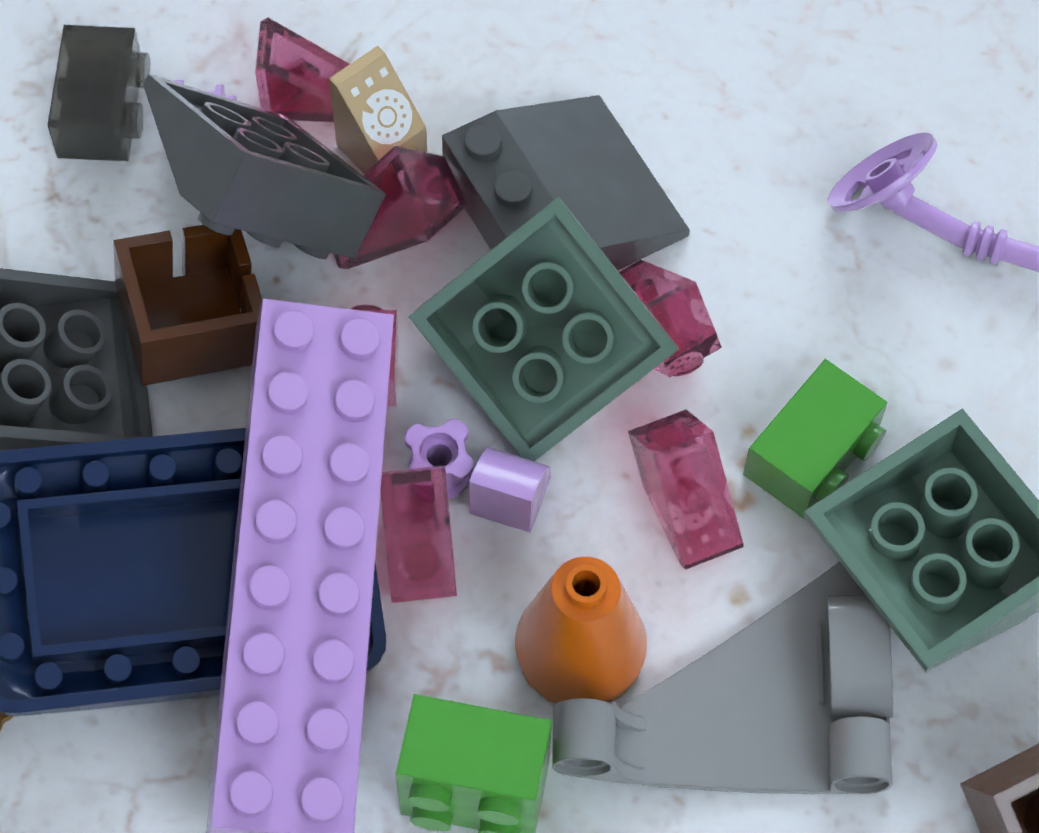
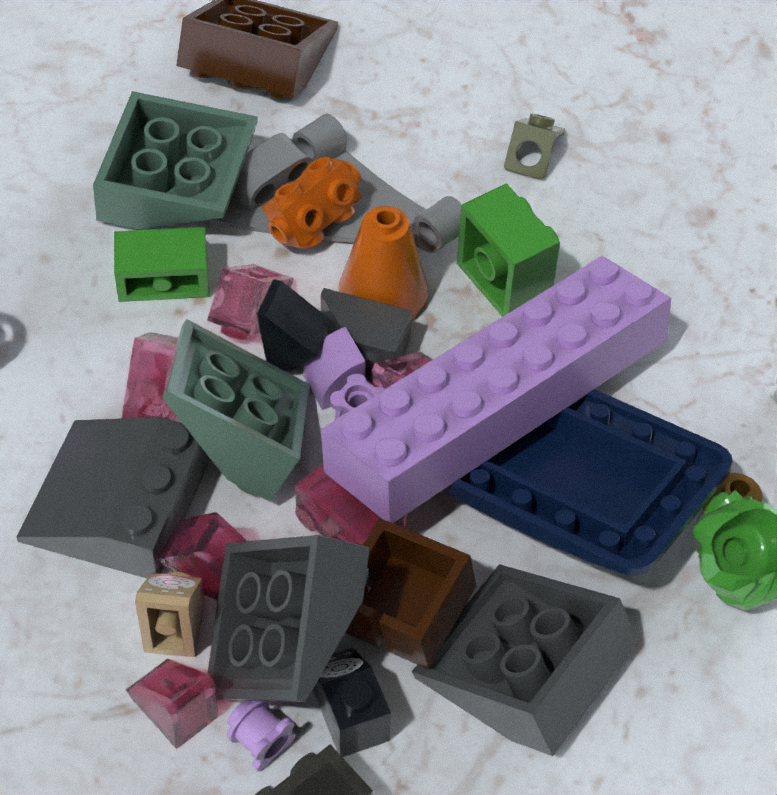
camera: 135 degrees left, 10 degrees down
(139, 193) = (352, 703): none -> black slope
(520, 549) = (375, 327): none -> dark grey slope
(583, 452) = (289, 327): none -> black slope
(754, 644) = (313, 202): none -> orange brick

